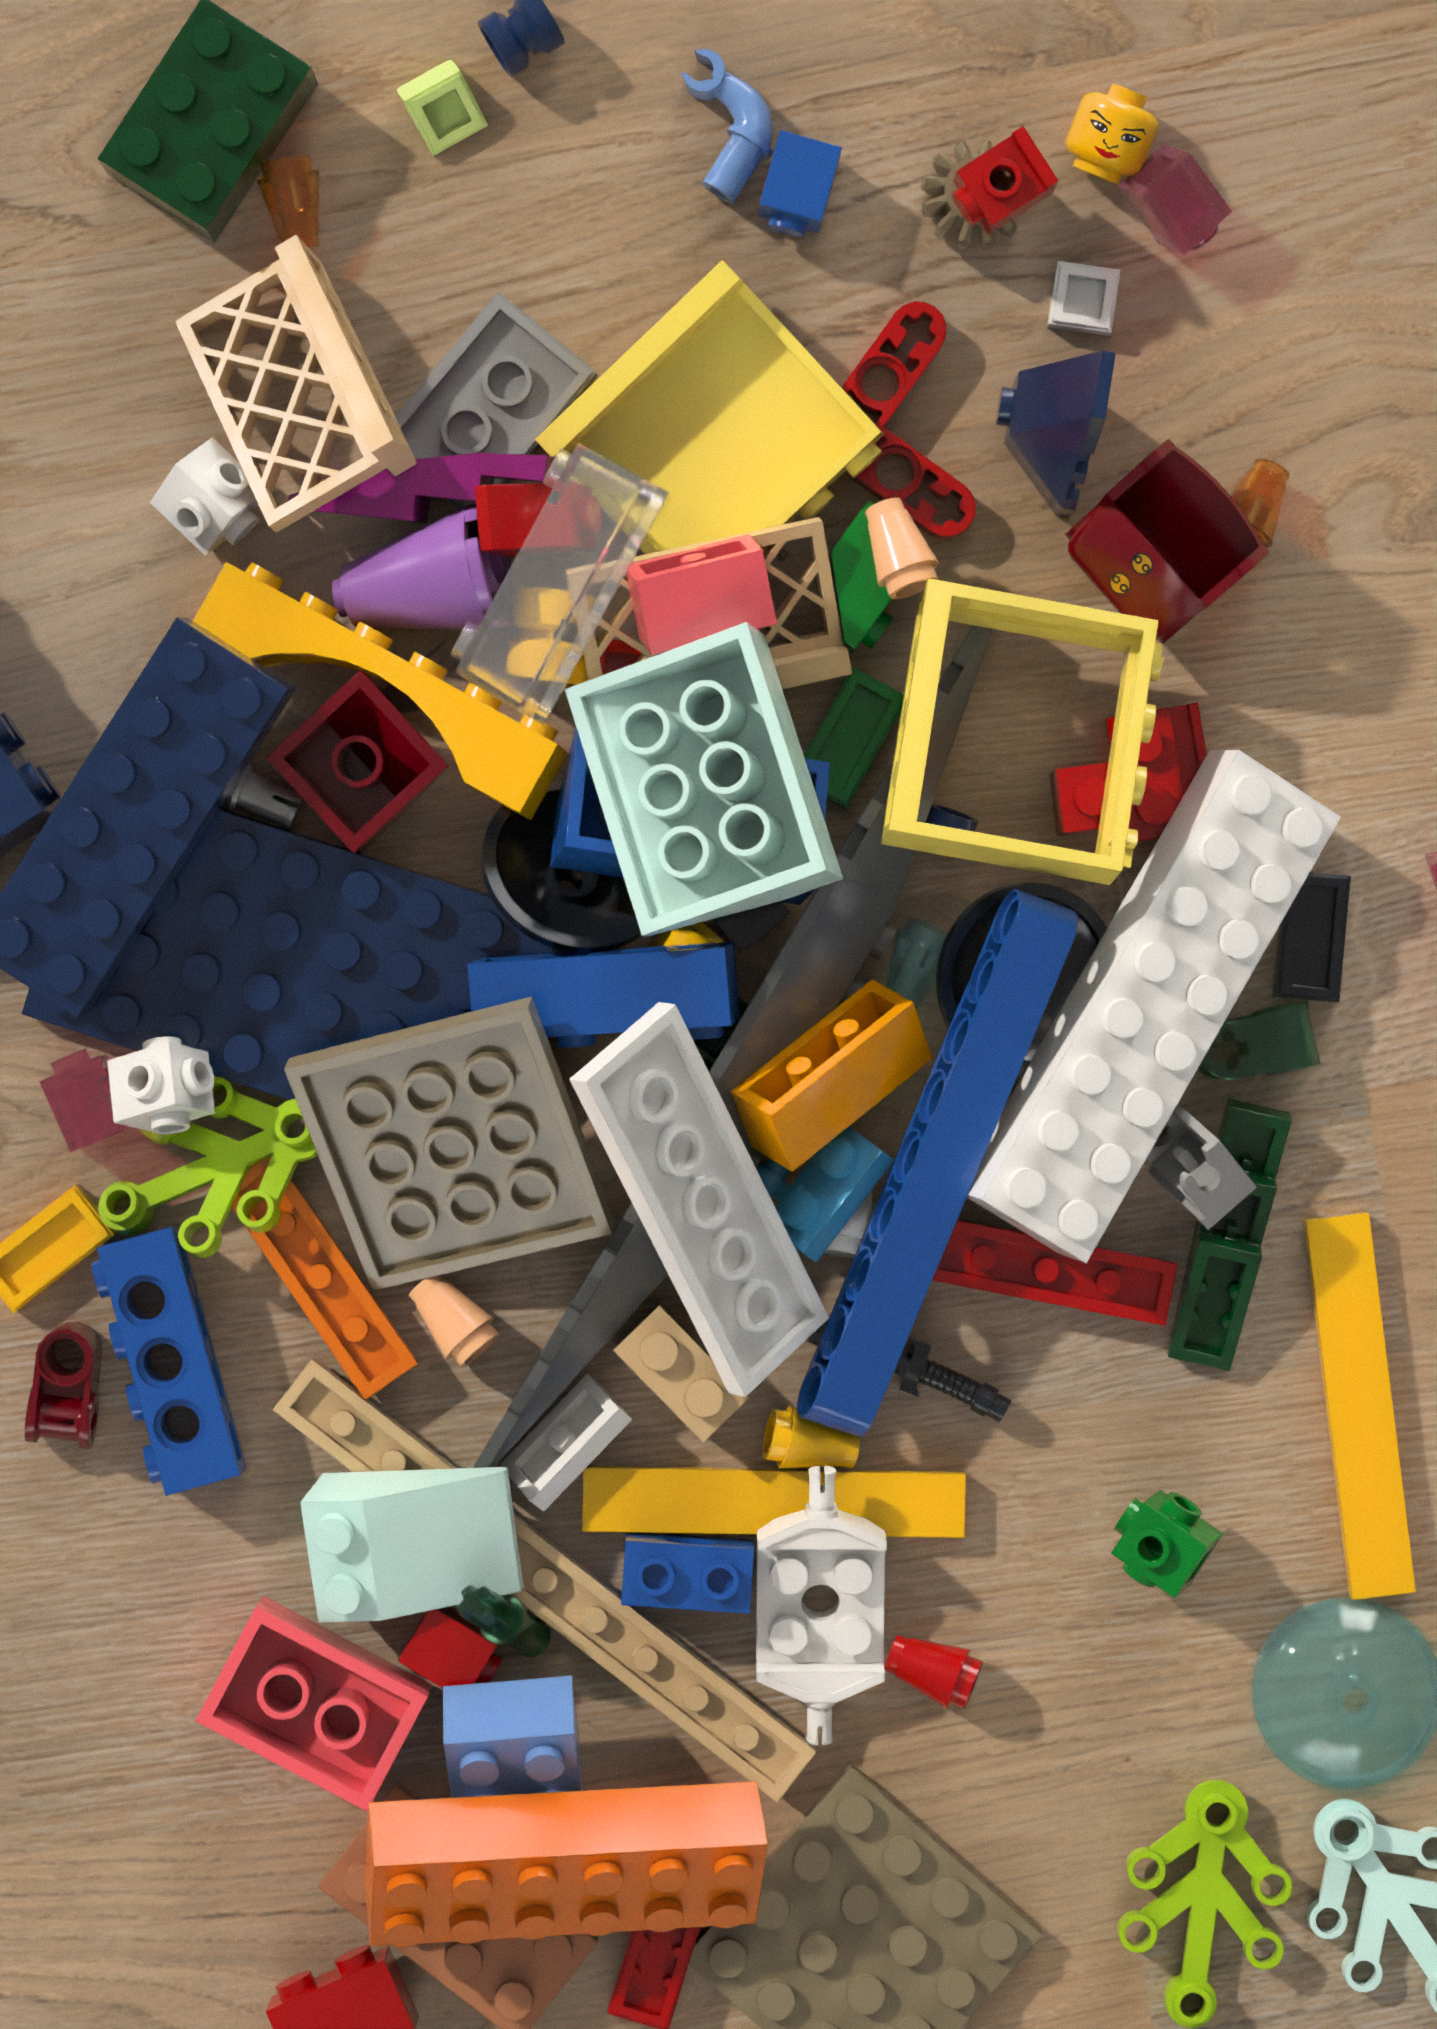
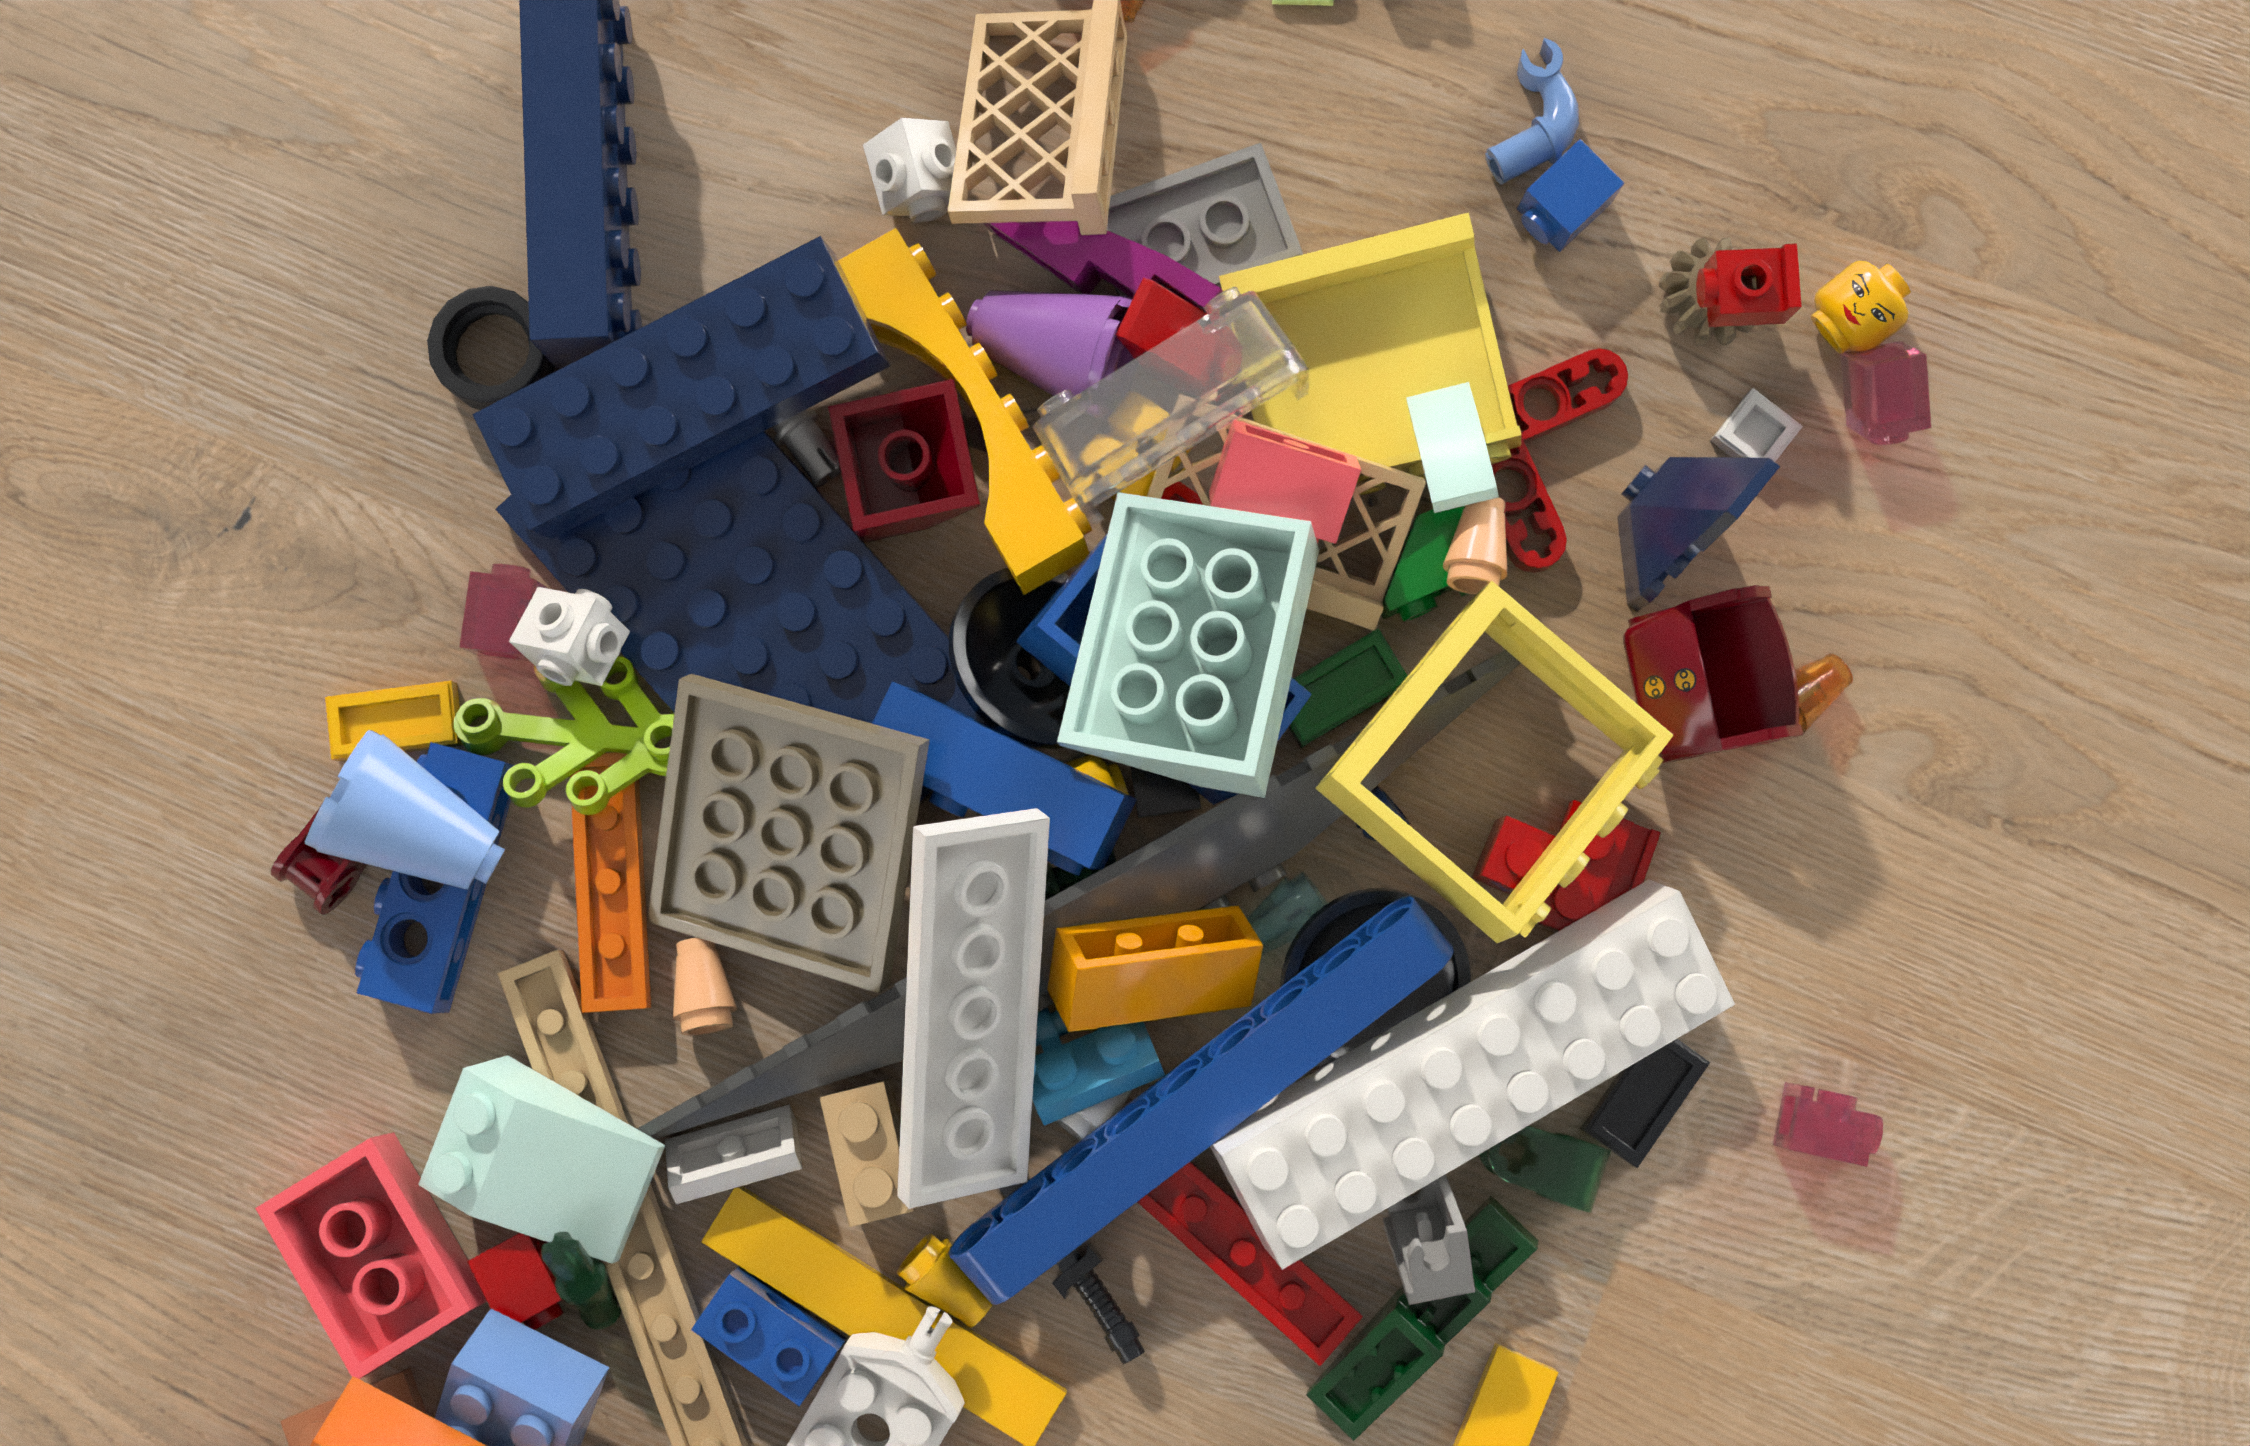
camera: 30 degrees right, 5 degrees down
(123, 1325) = (403, 819): none -> light blue cone
(826, 477) = (1452, 447): none -> light aqua slope

